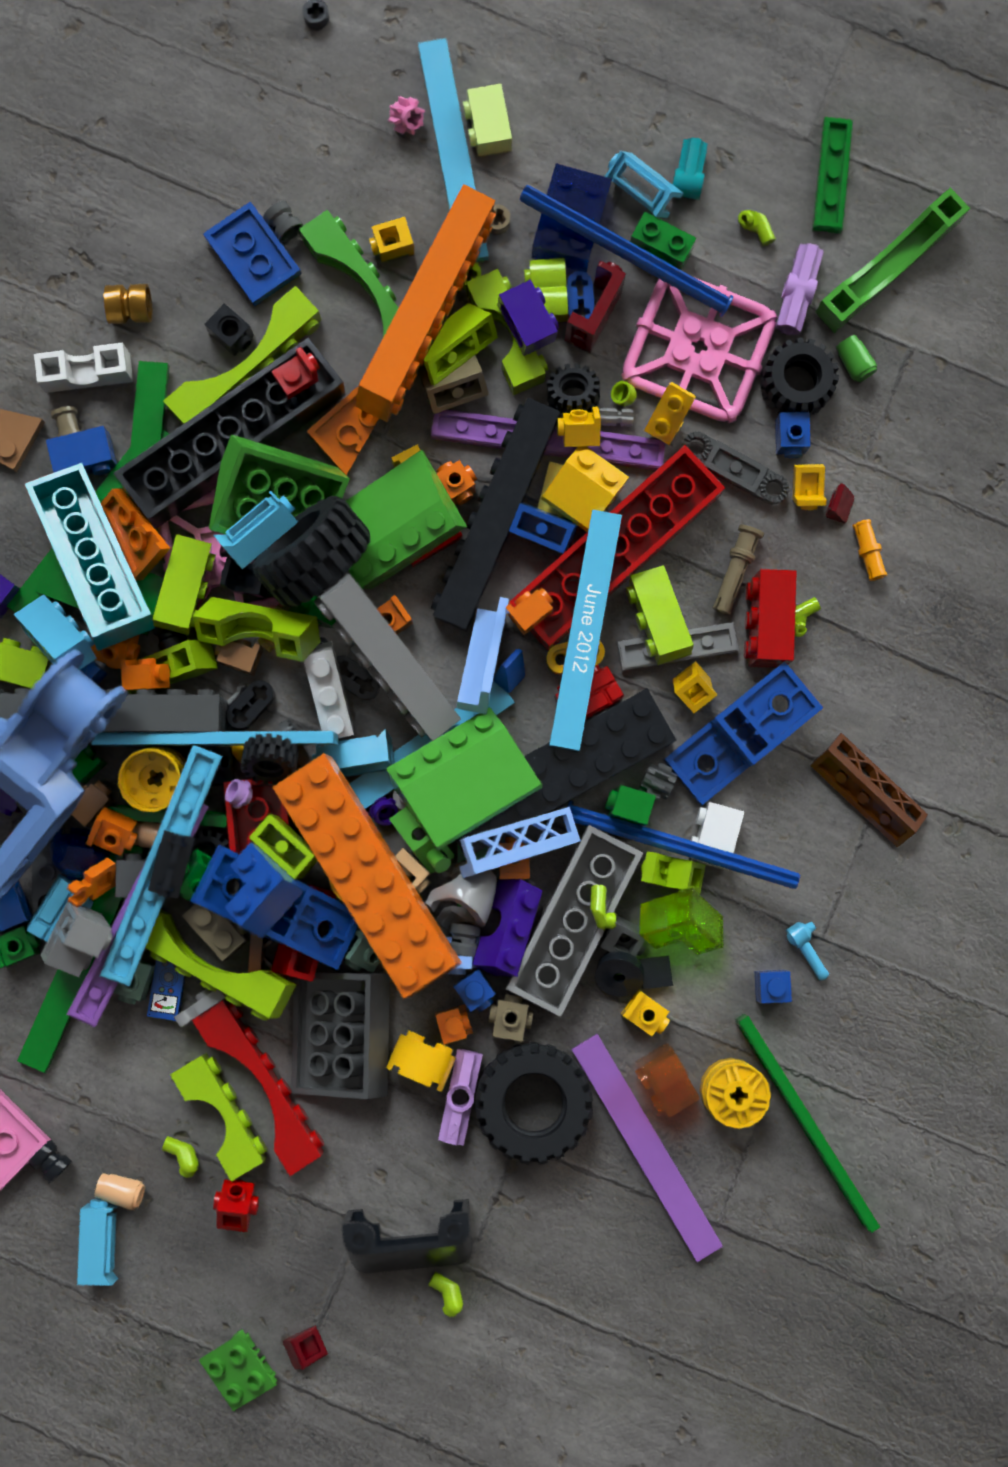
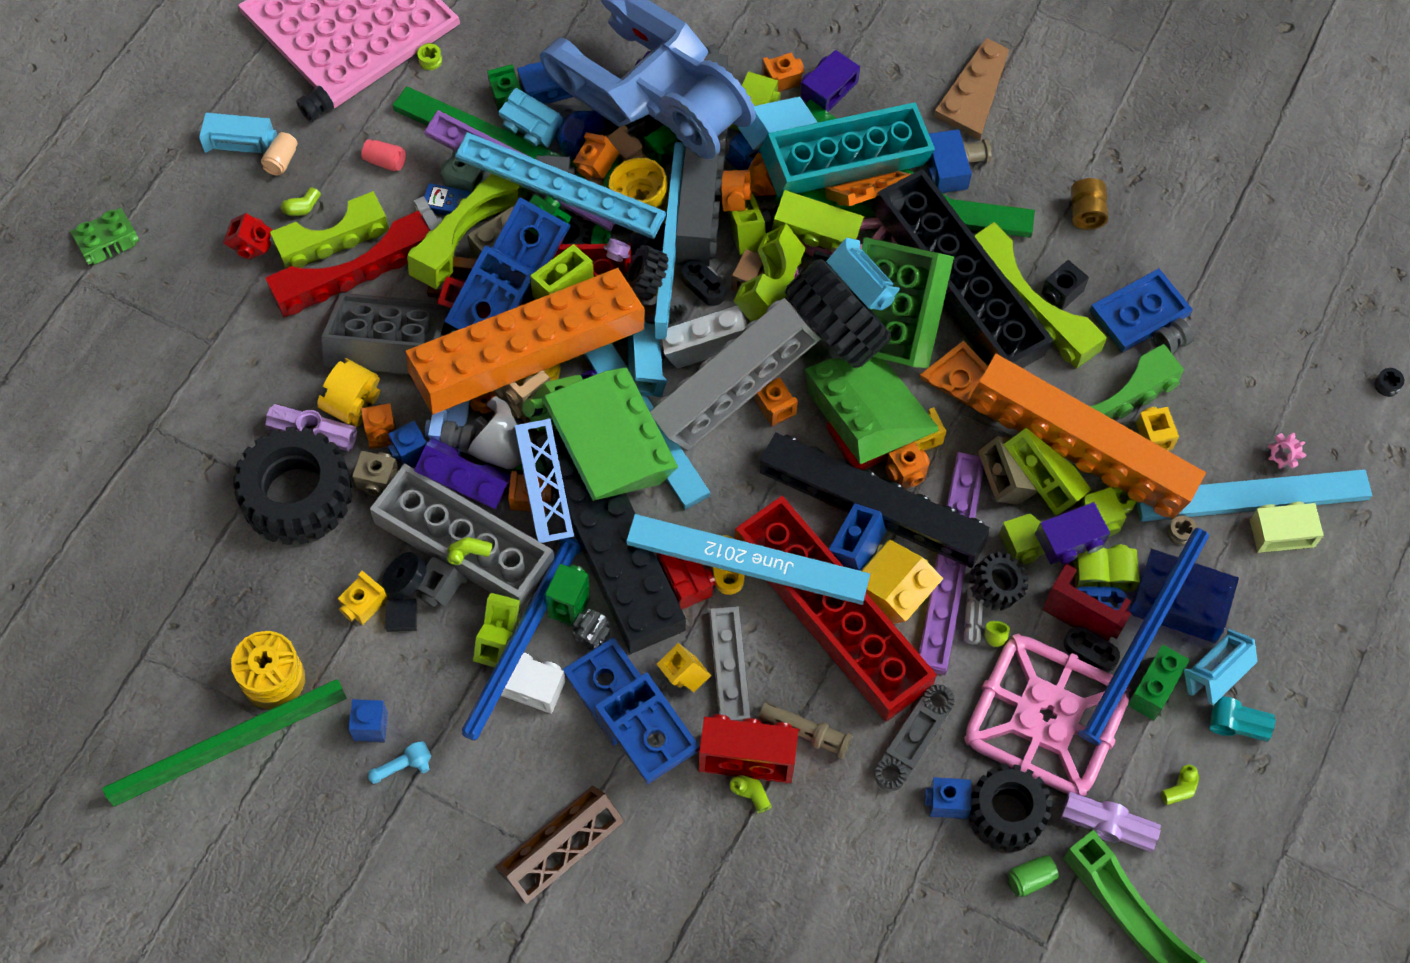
camera: 100 degrees right, 20 degrees down
(63, 372) = (1028, 176): white arch -> none
(76, 939) = (503, 120): light grey brick -> none
(96, 881) = (551, 139): orange plate -> none
(113, 1072) = (383, 155): none -> coral piece
(171, 864) = (557, 187): black hinge -> none
(266, 891) = (518, 247): blue brick -> none
(297, 373) = (1014, 322): red bracket -> none
(305, 1348) = (111, 289): dark red slope -> none
(375, 1254) = (181, 394): black windscreen -> none
(451, 1294) = (132, 408): lime arm -> none
(482, 659) = (727, 469): light blue fence -> none
(511, 671) = (715, 502): blue slope -> none
(530, 610) = (770, 506): orange brick -> none
(580, 428) = (957, 577): yellow brick -> none
(624, 303) = (1091, 648): none -> black beam
(647, 1147) = (230, 592): medium lavender tile -> none
(659, 615) = (760, 642): lime brick -> none
(668, 1080) = (296, 609): clear orange brick -> none
(670, 413) = (967, 663): yellow bracket -> none
(683, 918) = (447, 634): clear neon green brick -> none
(809, 486) = (891, 809): yellow bracket -> none
(832, 175) = (1243, 874): green tile -> none
(840, 504) = (871, 843): dark red slope -> none
(869, 550) = (818, 869): light orange pin -> none

